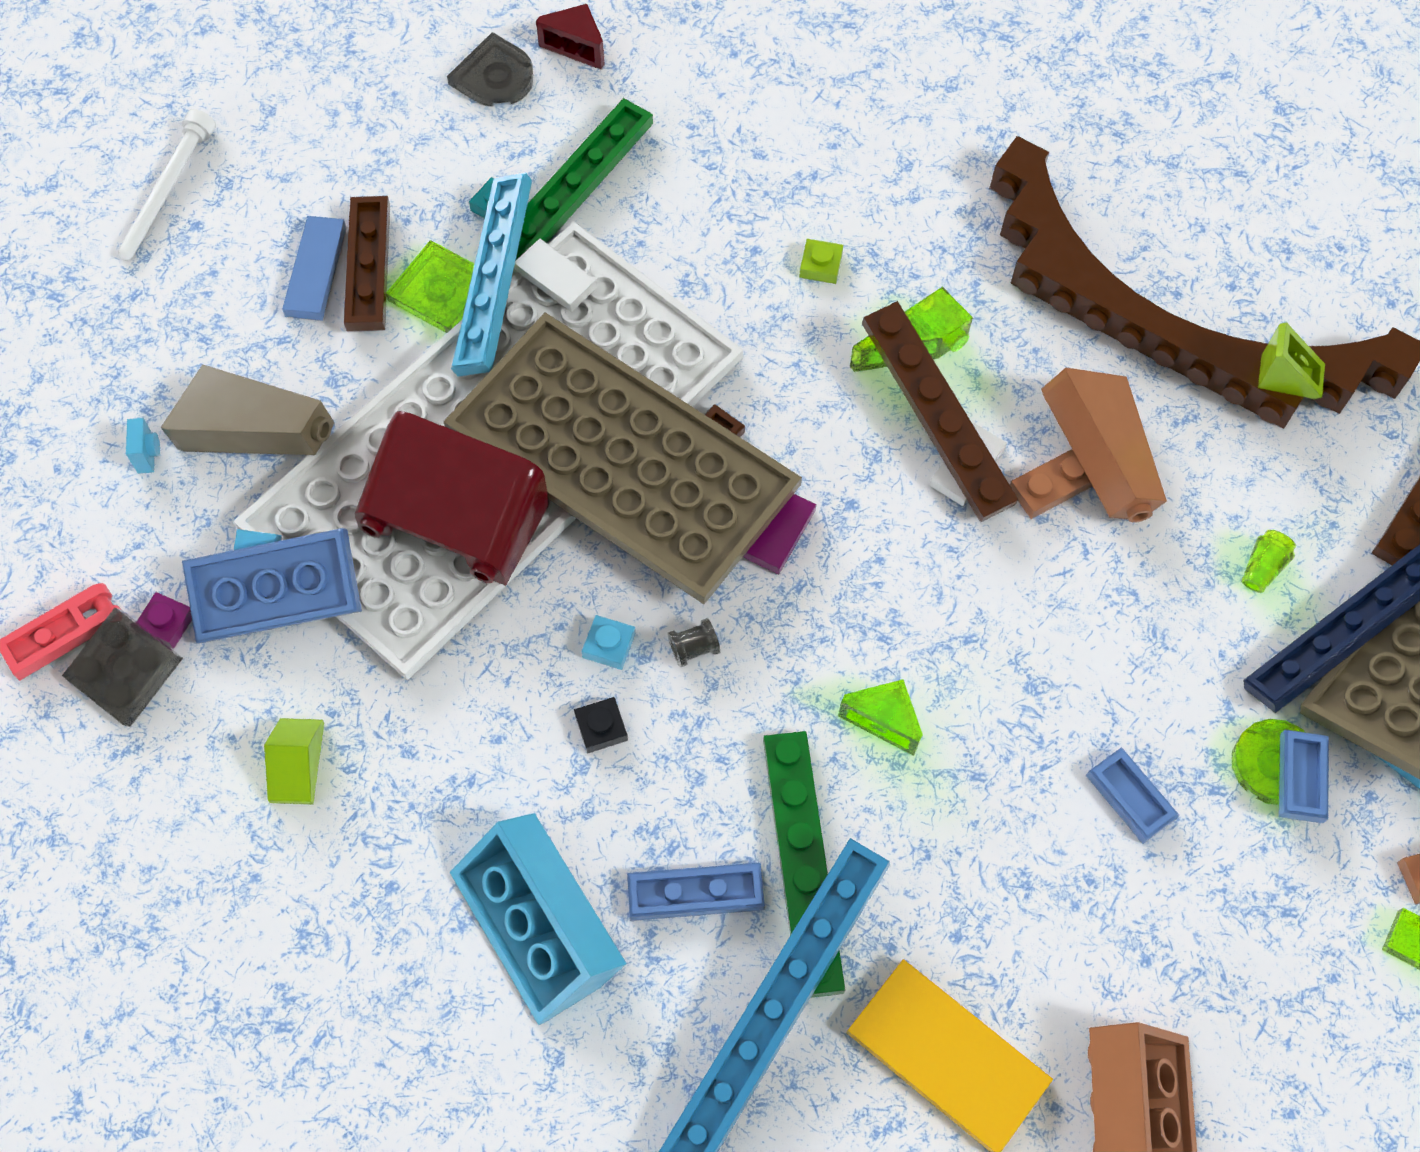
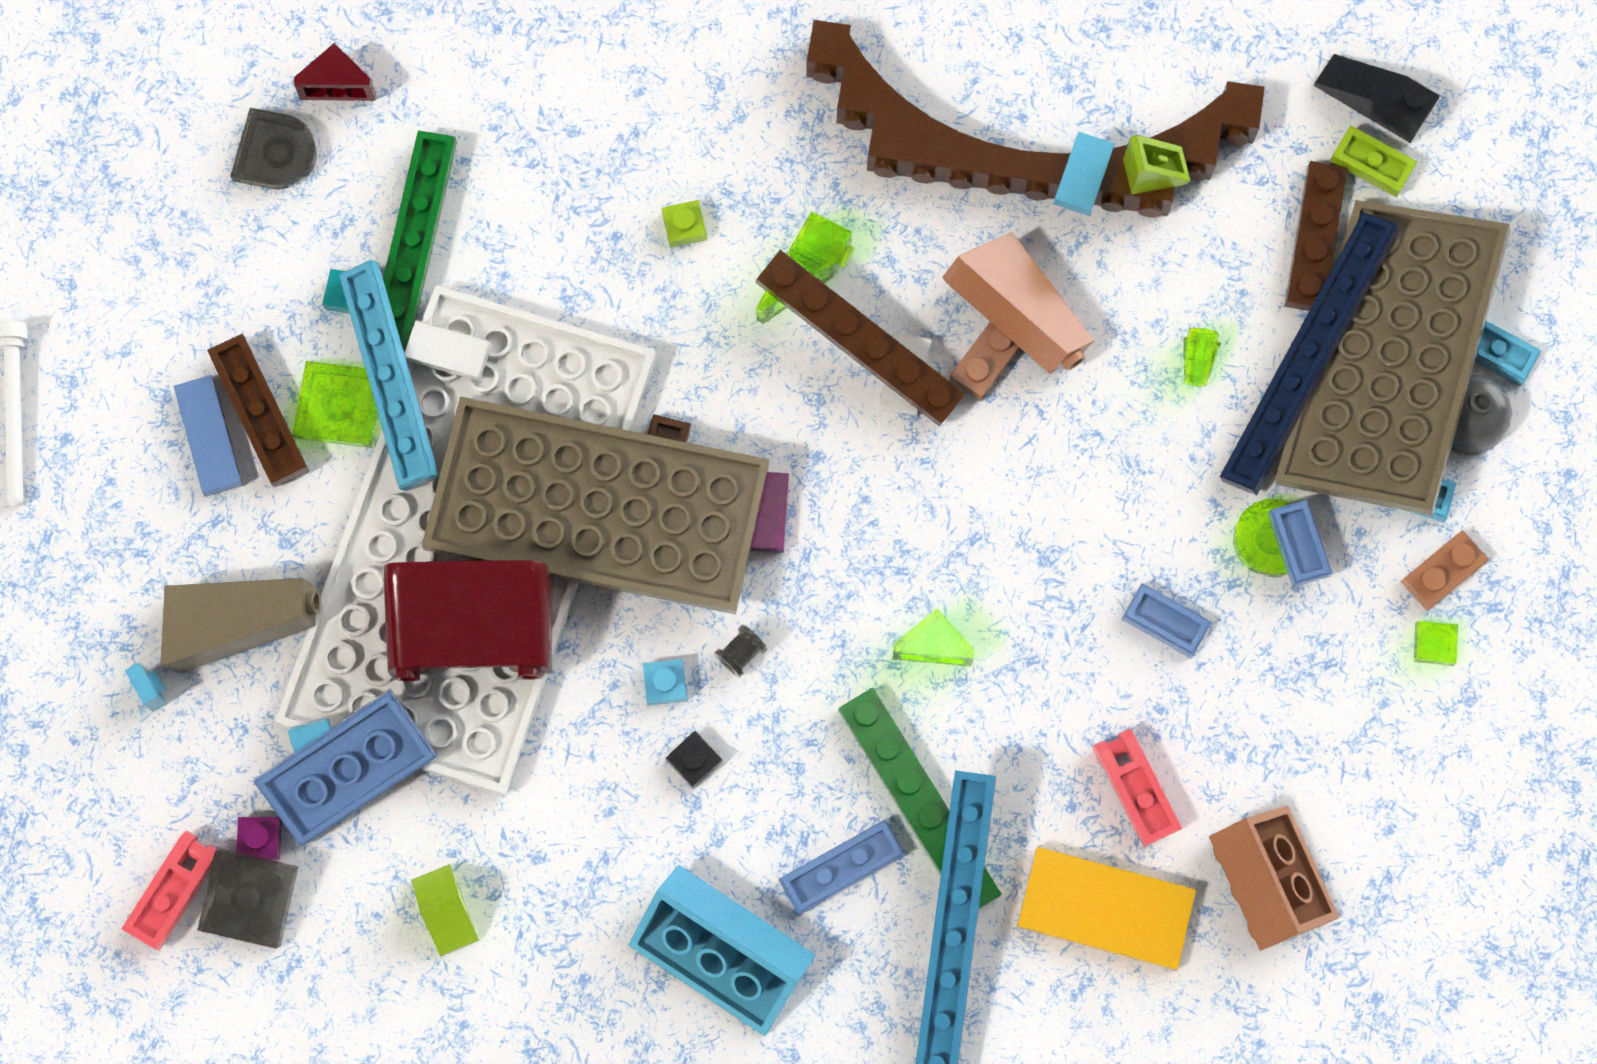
camera: 25 degrees left, 10 degrees up
(1033, 948) = (1137, 789): none -> coral plate
(1218, 350) = (1084, 173): none -> medium azure tile

